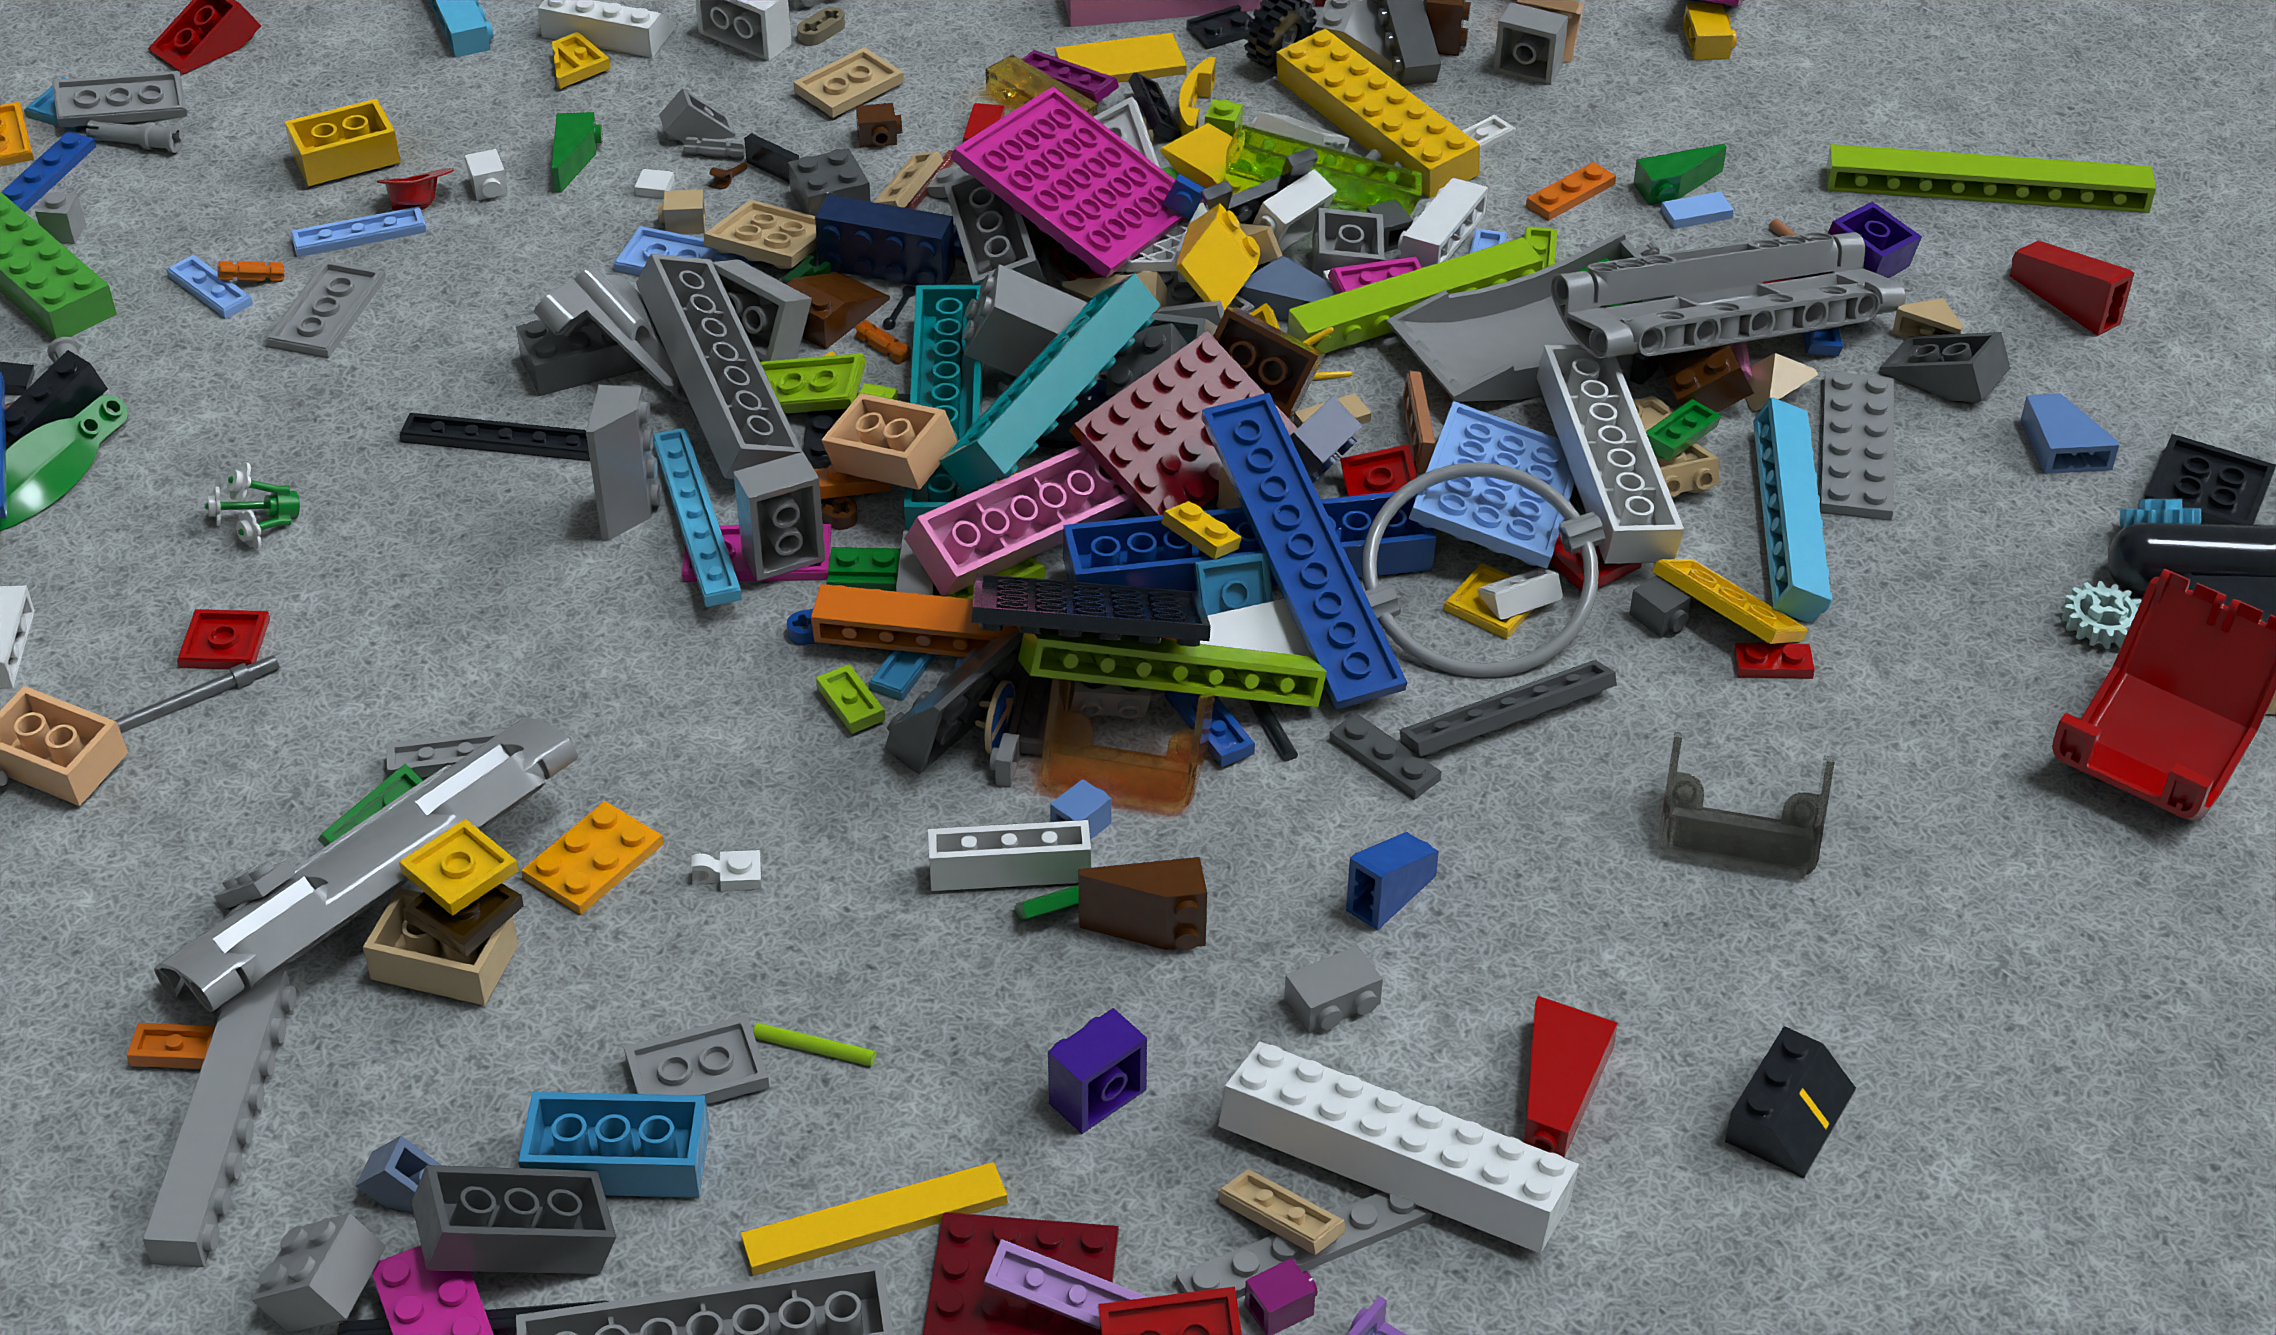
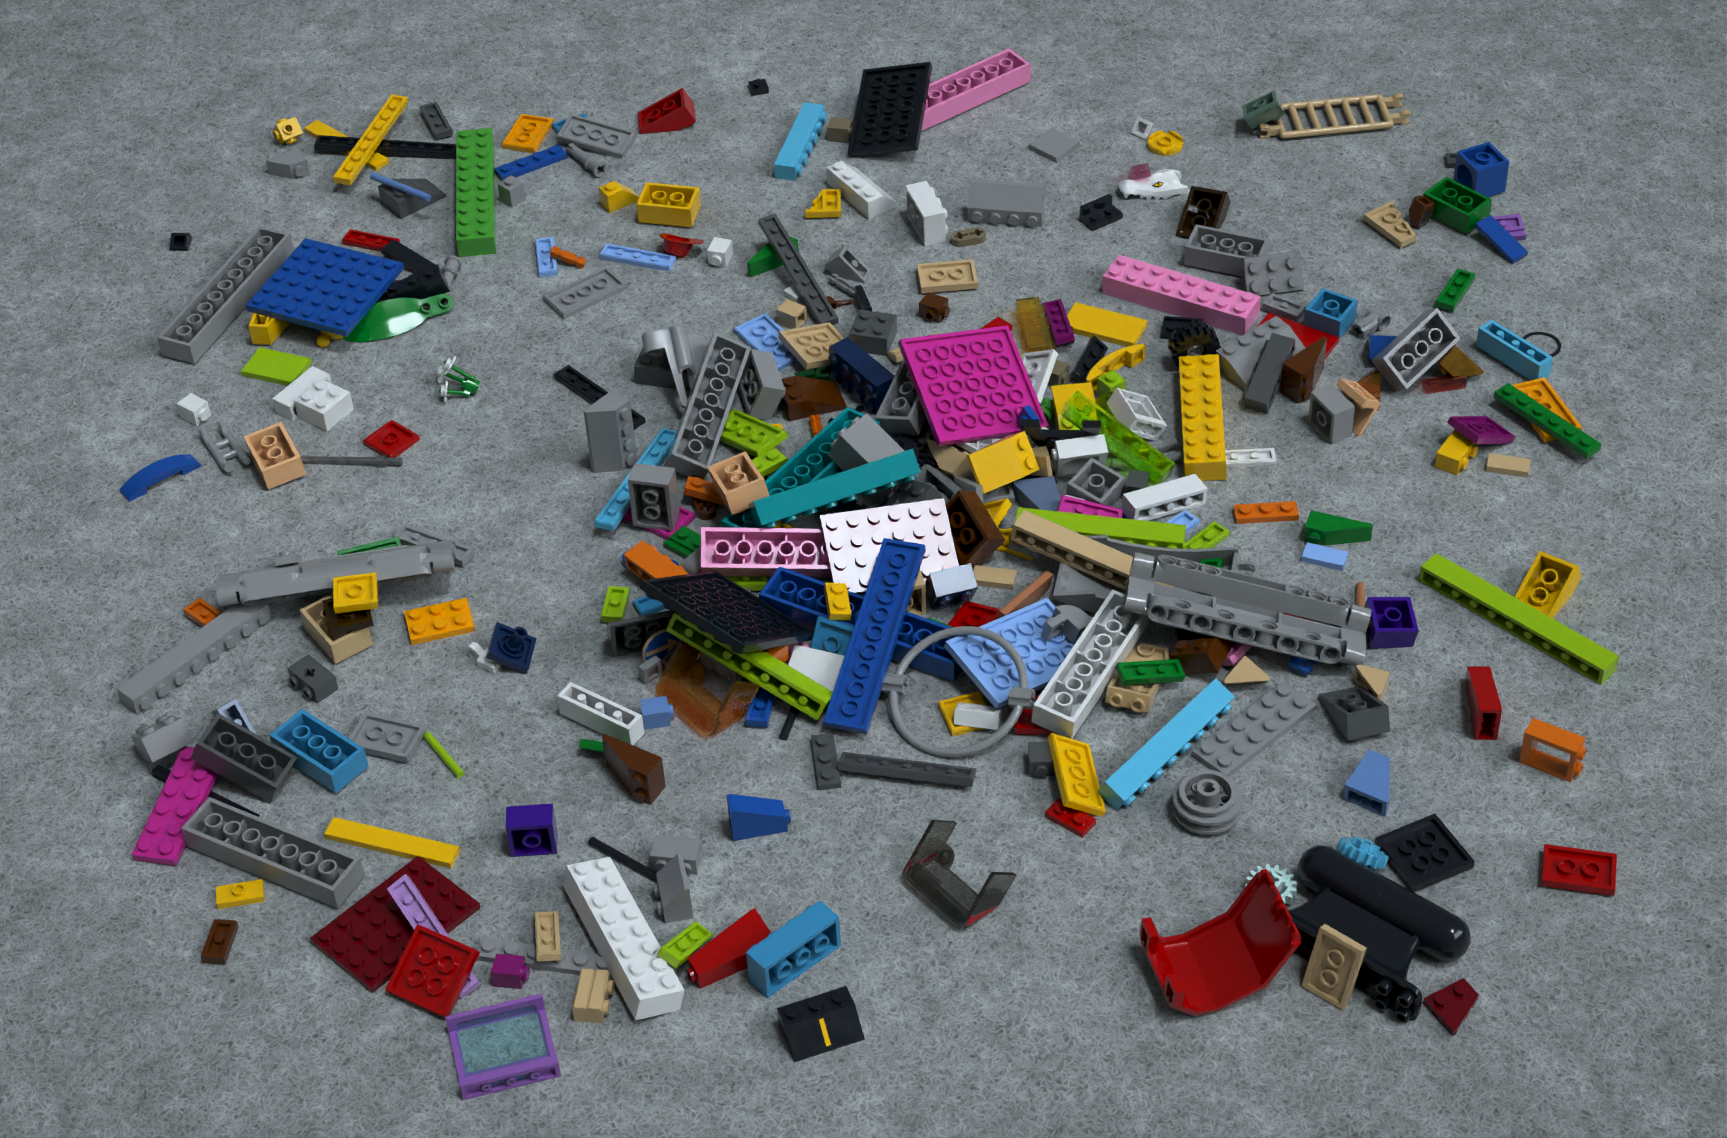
camera: 40 degrees right, 0 degrees up
(56, 636) = (323, 404): none -> white brick
(240, 164) = (616, 196): none -> yellow slope
(477, 1044) = (312, 679): none -> dark grey brick
(639, 148) = (797, 270): none -> dark grey plate
(765, 831) = (511, 647): none -> dark blue plate
(1246, 1041) = (622, 858): none -> black bar
(1398, 1035) = (673, 891): none -> light grey slope
(1440, 1257) = (592, 996): none -> tan brick
(1443, 325) = (1073, 549): none -> tan brick
(1500, 1102) = (685, 944): none -> lime tile
(1521, 416) = (1066, 620): none -> light grey brick
(1651, 1020) = (793, 948): none -> dark azure brick
(1773, 23) = (1508, 465): none -> tan tile
(1921, 551) = (1207, 812): none -> light grey wheel
(1979, 120) = (1549, 584): none -> yellow slope
(2192, 278) = (1559, 739): none -> orange window

